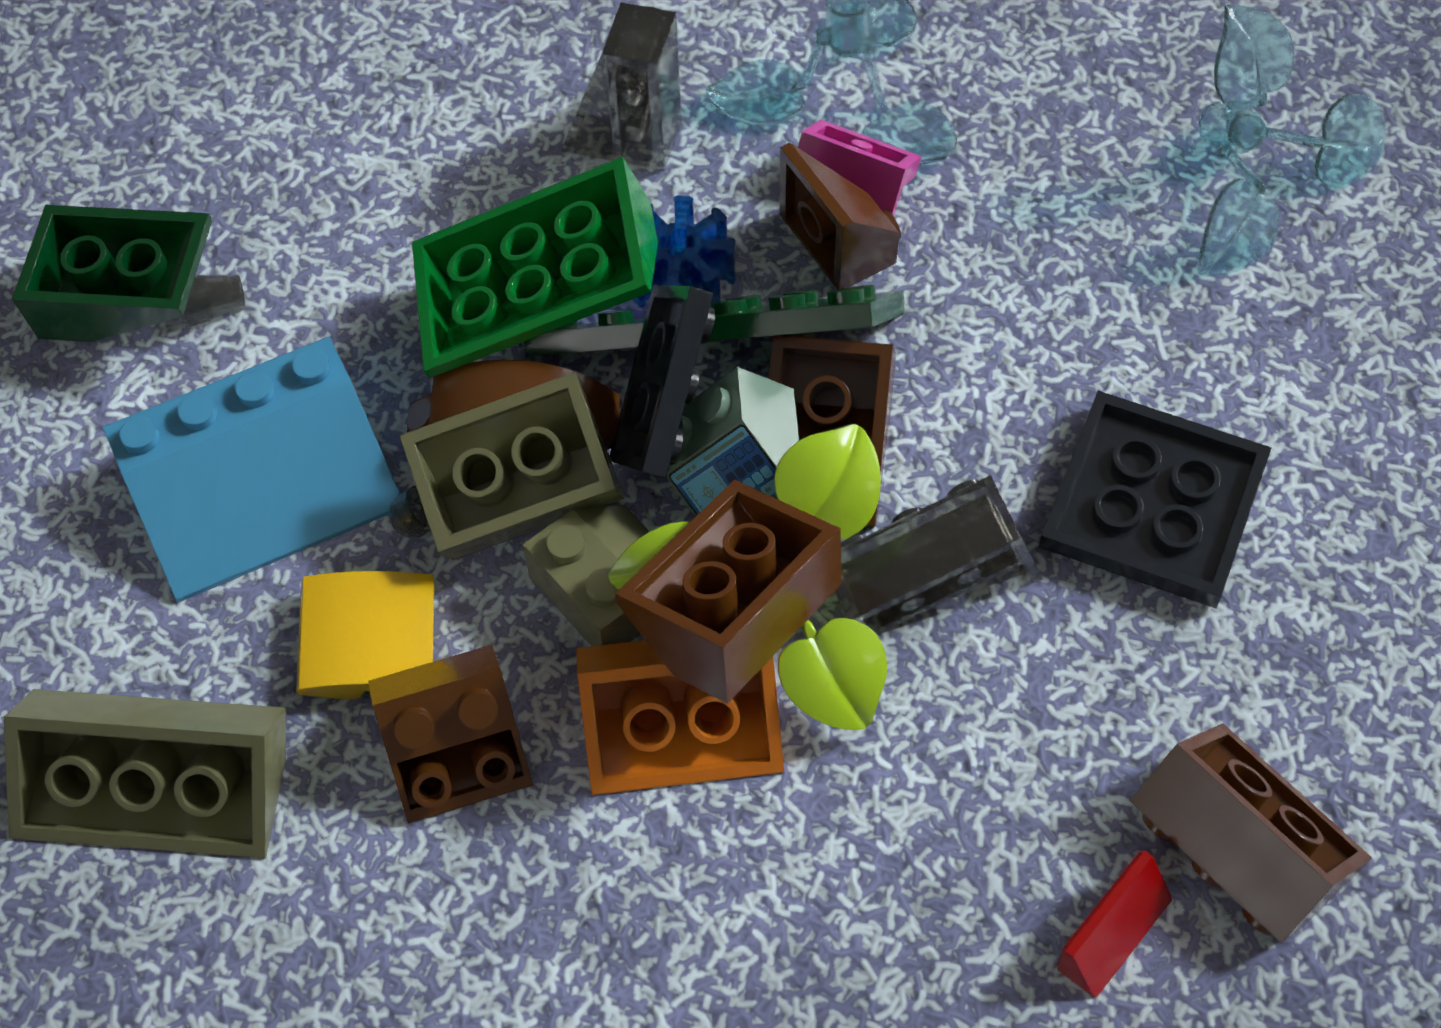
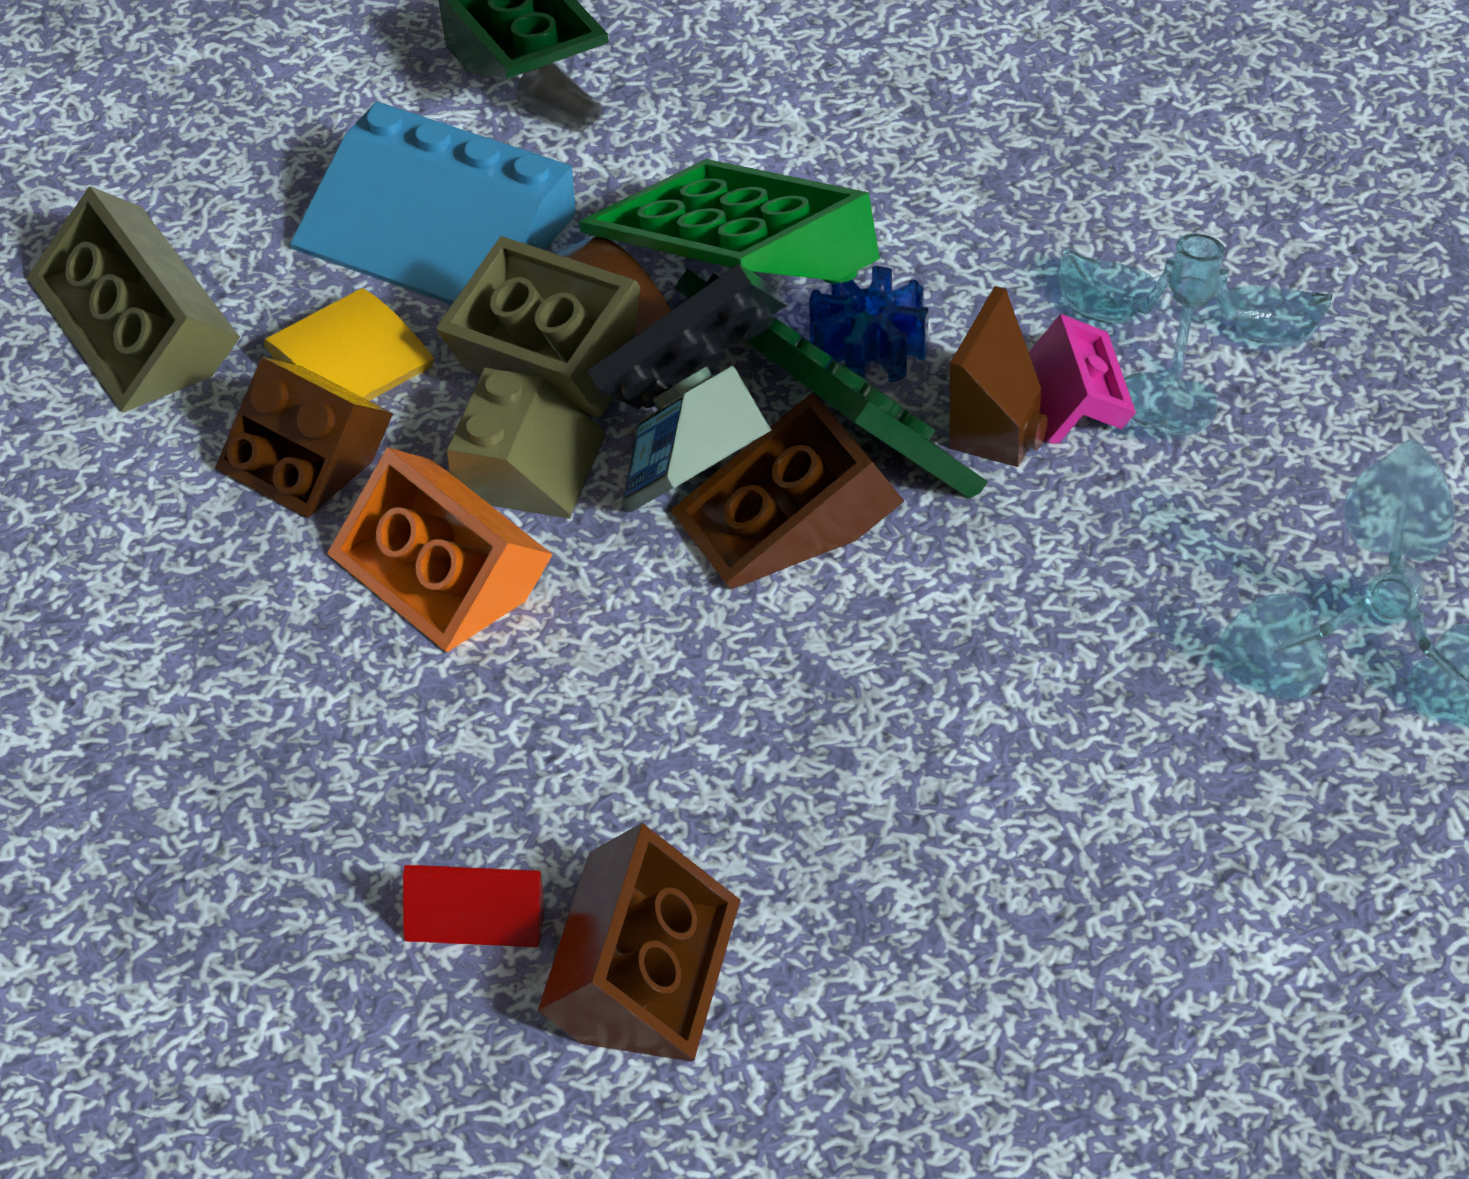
camera: 55 degrees right, 15 degrees down
(632, 92) = (983, 188): clear smoke wedge -> none
(733, 588) = (525, 473): reddish brown slope -> none
(842, 666) = (517, 449): lime plant -> none
(933, 557) = (716, 617): clear smoke wedge -> none
(1156, 498) = (925, 741): black plate -> none

